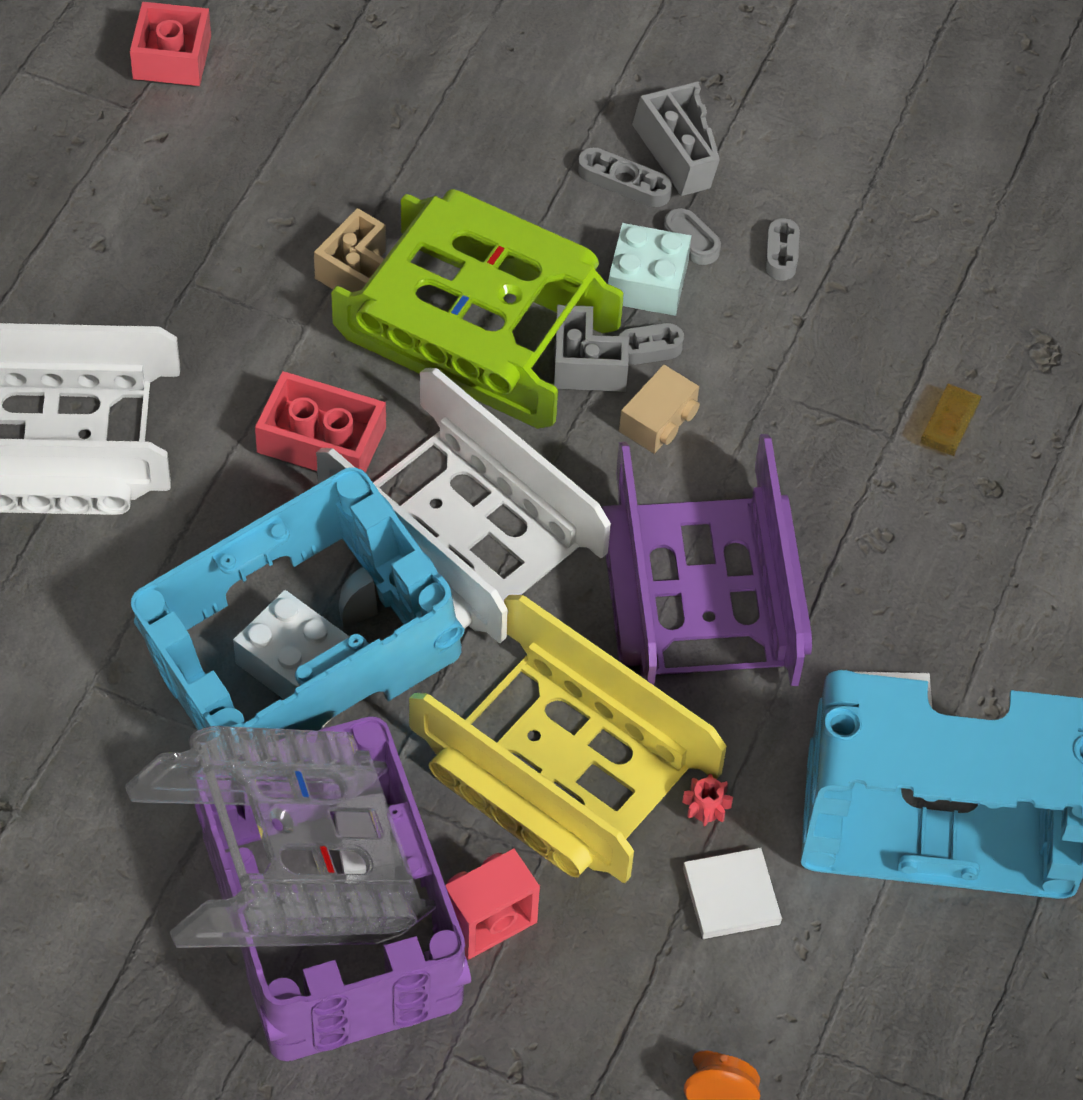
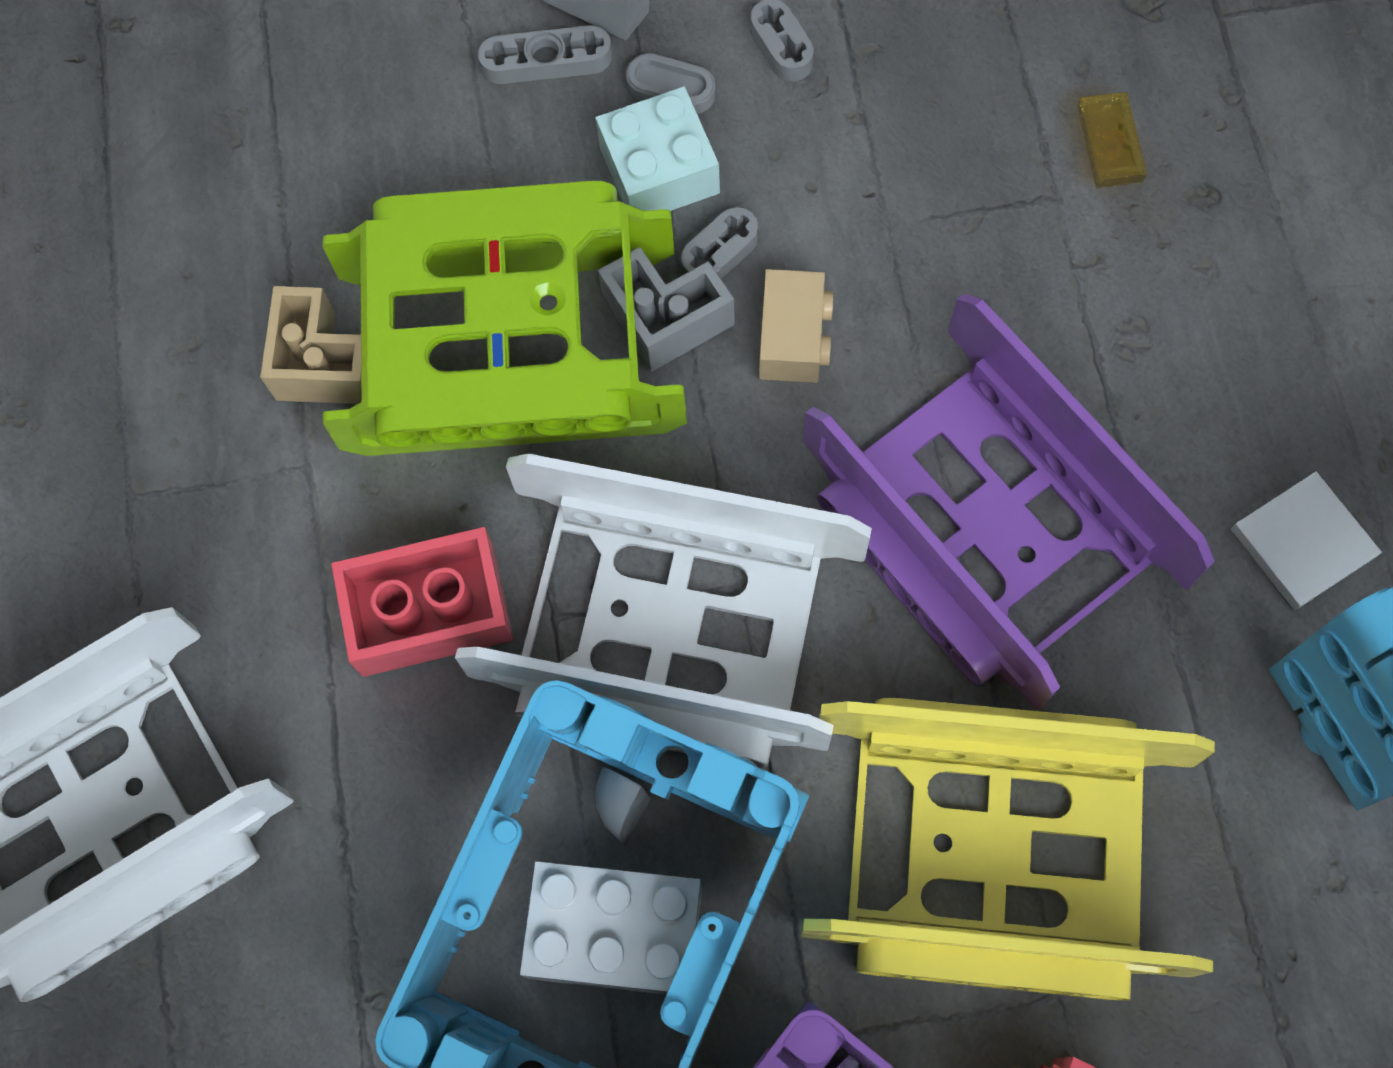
camera: 25 degrees left, 15 degrees up
(707, 799) = (1214, 793): coral gear -> none
(732, 893) = (1306, 900): white tile -> none

